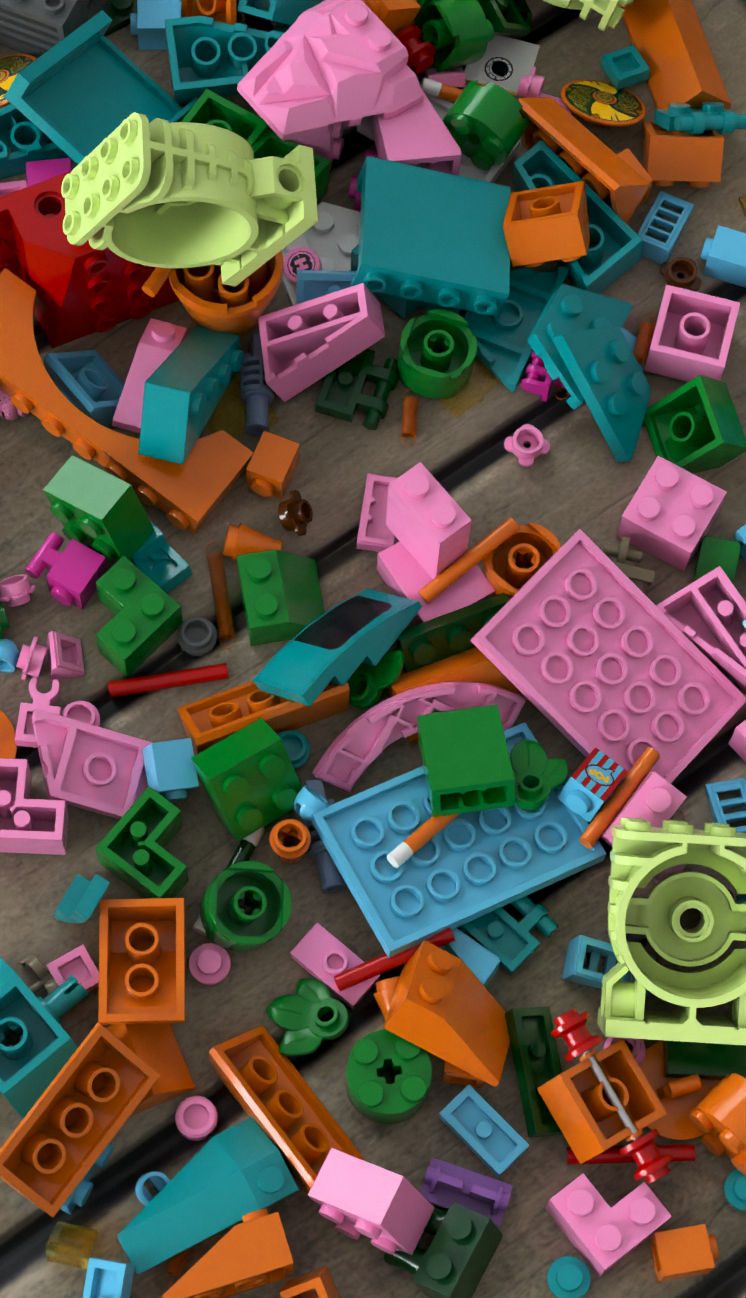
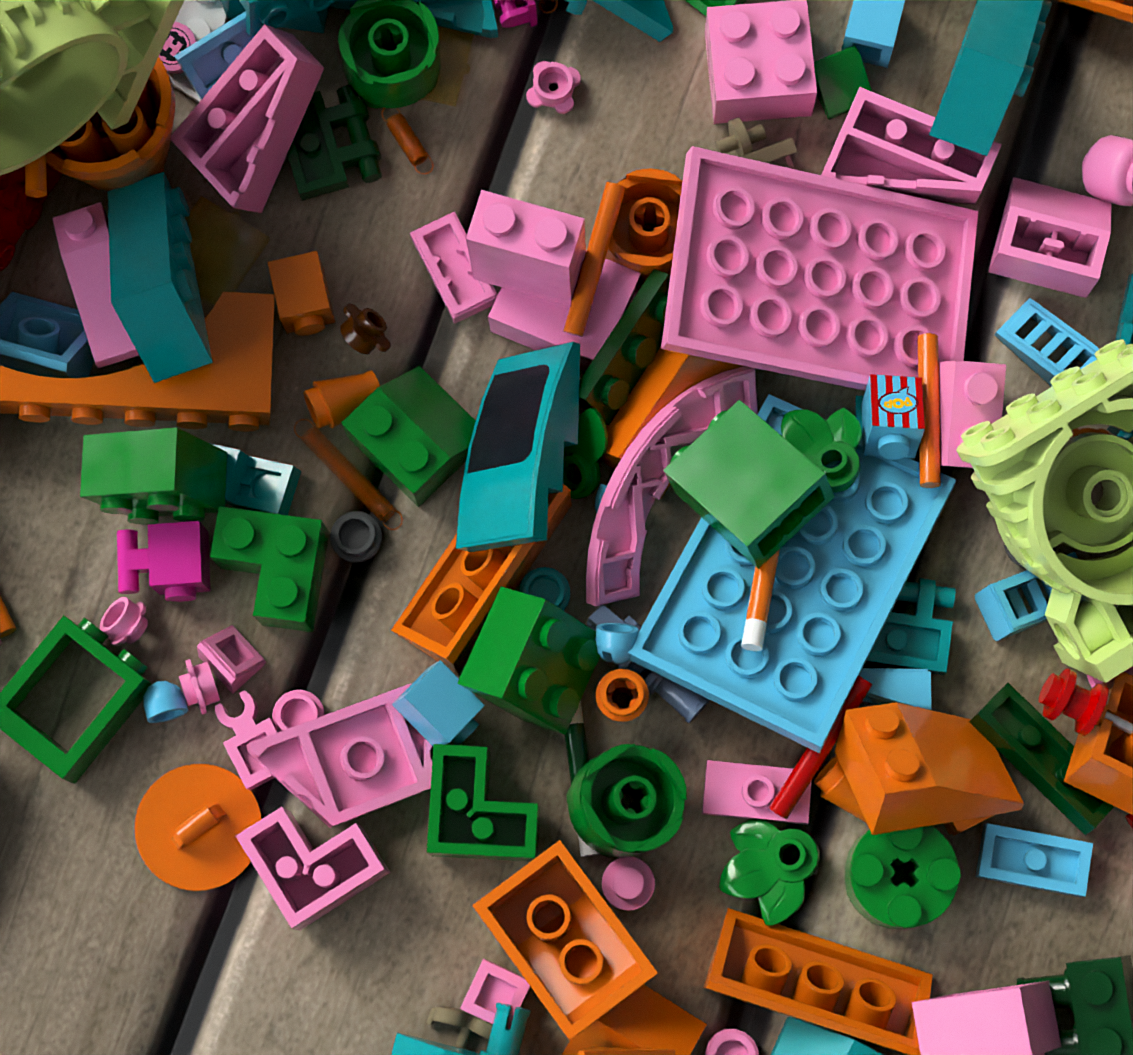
camera: 25 degrees left, 10 degrees up
(81, 899) = (449, 915): teal slope -> none
(168, 680) = (359, 606): red bar -> none
(254, 390) = (219, 219): sand blue hinge -> none
(477, 1192) = (1060, 935): medium lavender hinge -> none

